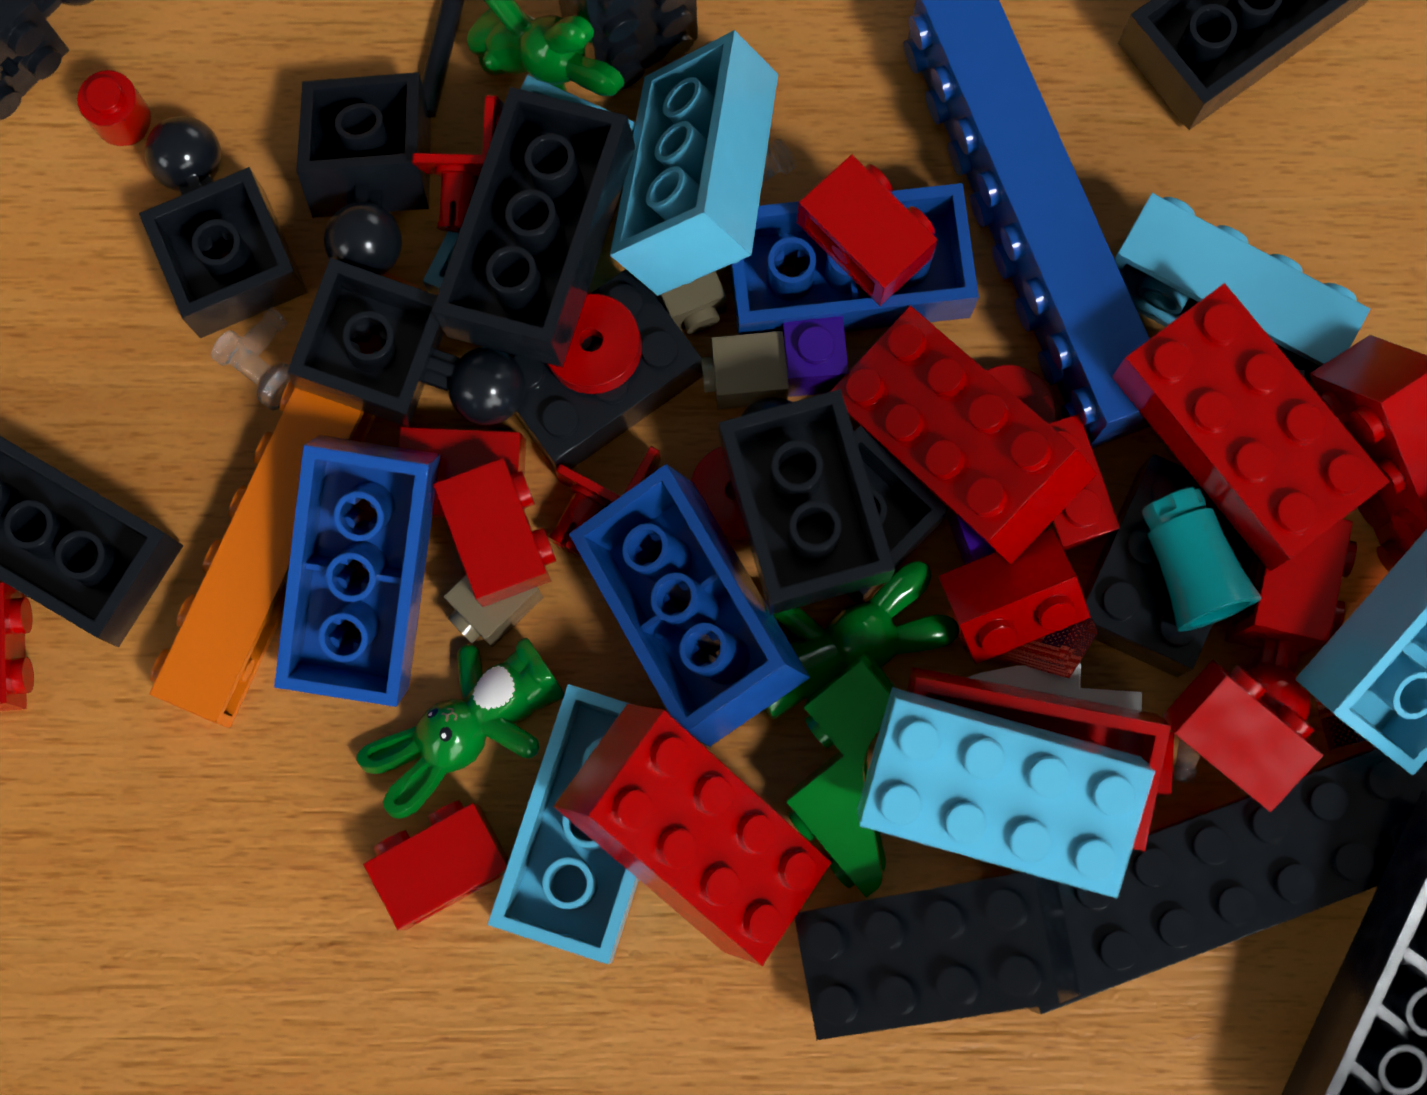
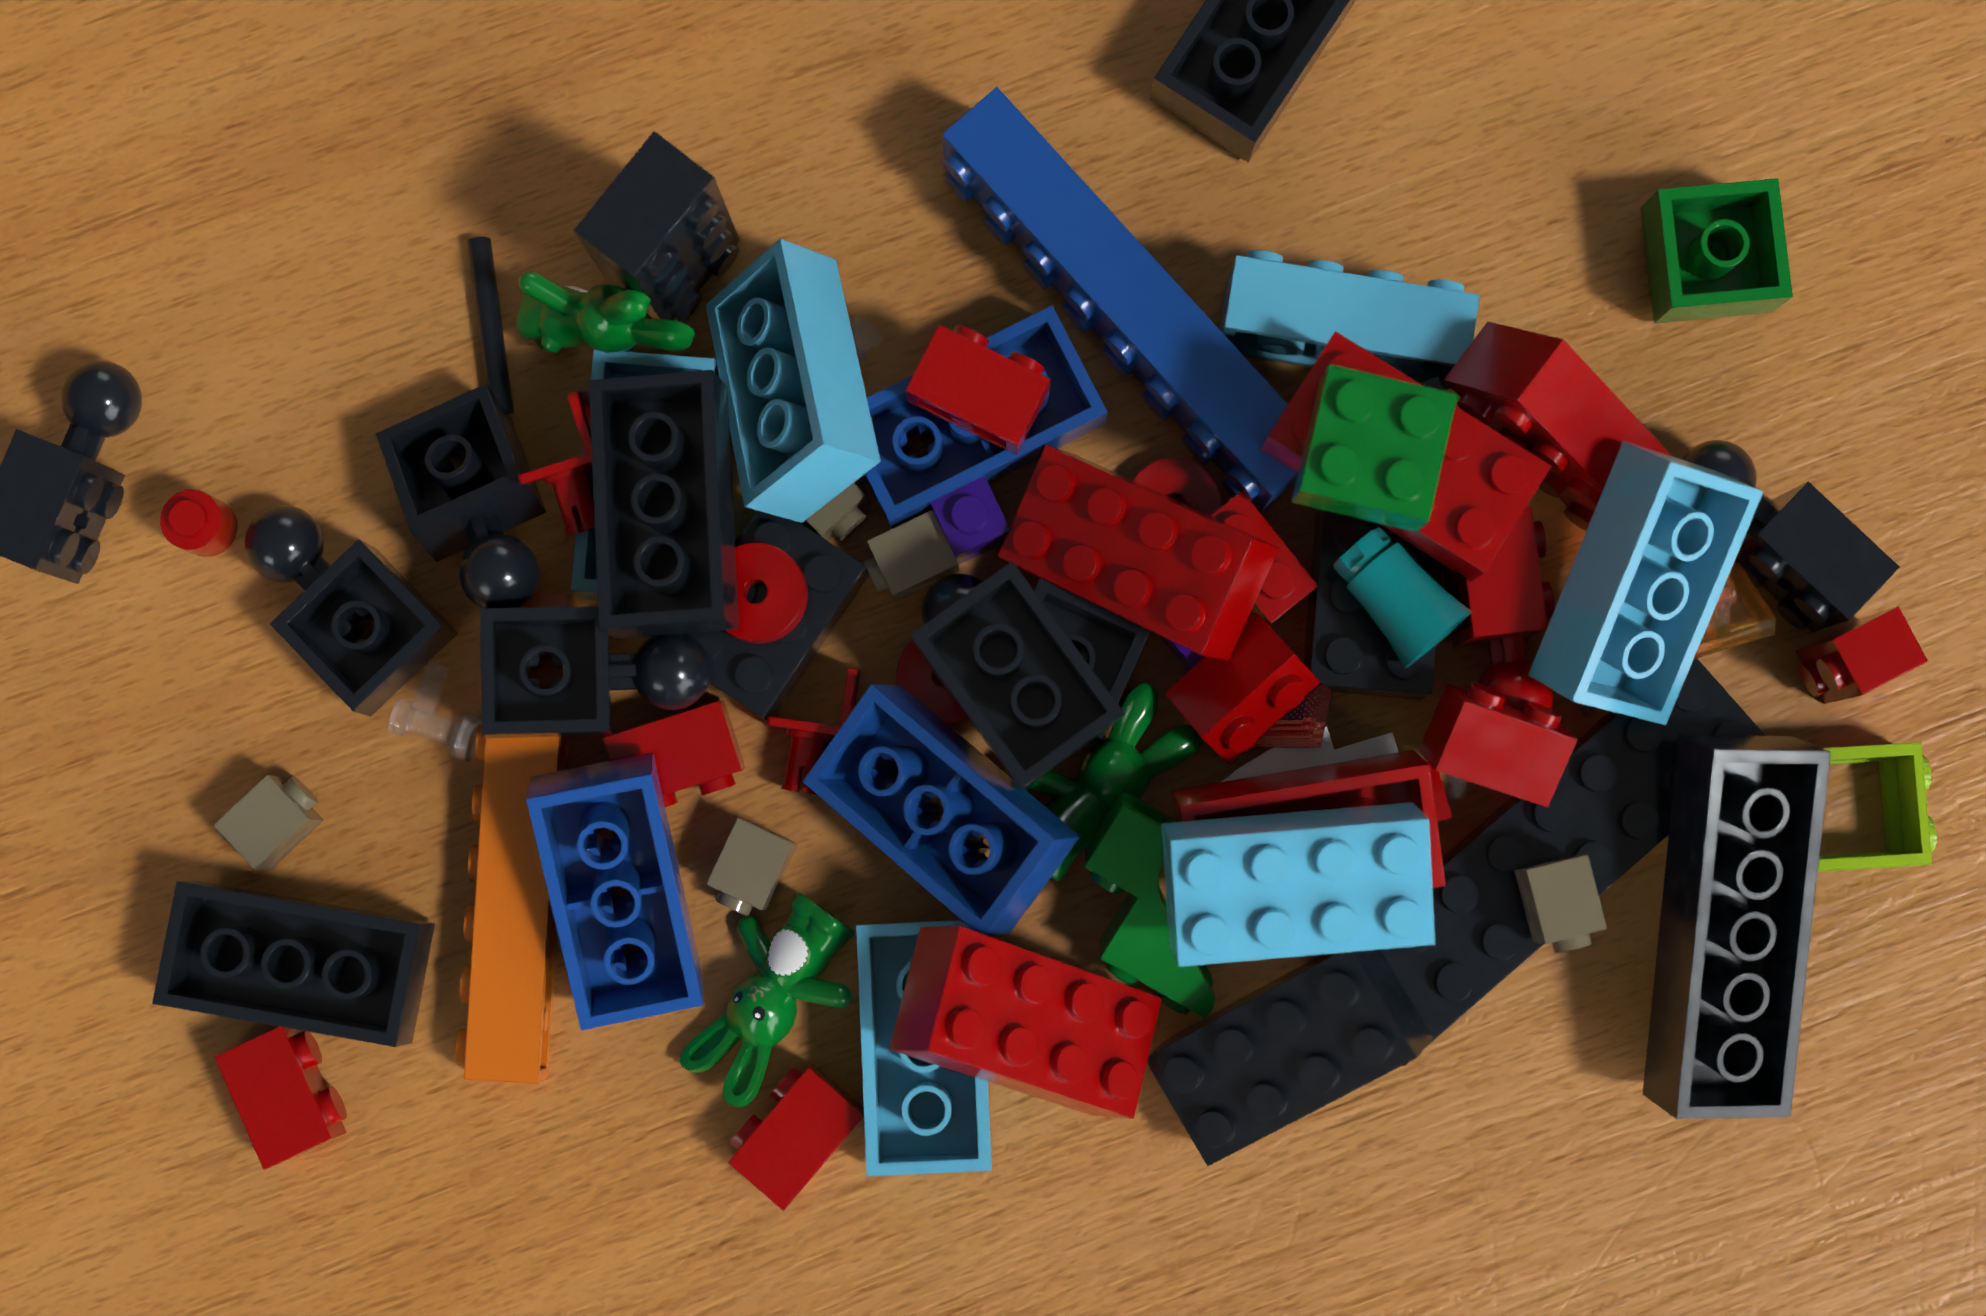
camera: 20 degrees left, 5 degrees up
(70, 396) = (270, 821): none -> dark tan brick
(494, 532) = (733, 807): red brick -> none
(1227, 397) = (1374, 448): none -> green brick
(1252, 909) = (1561, 902): none -> dark tan brick

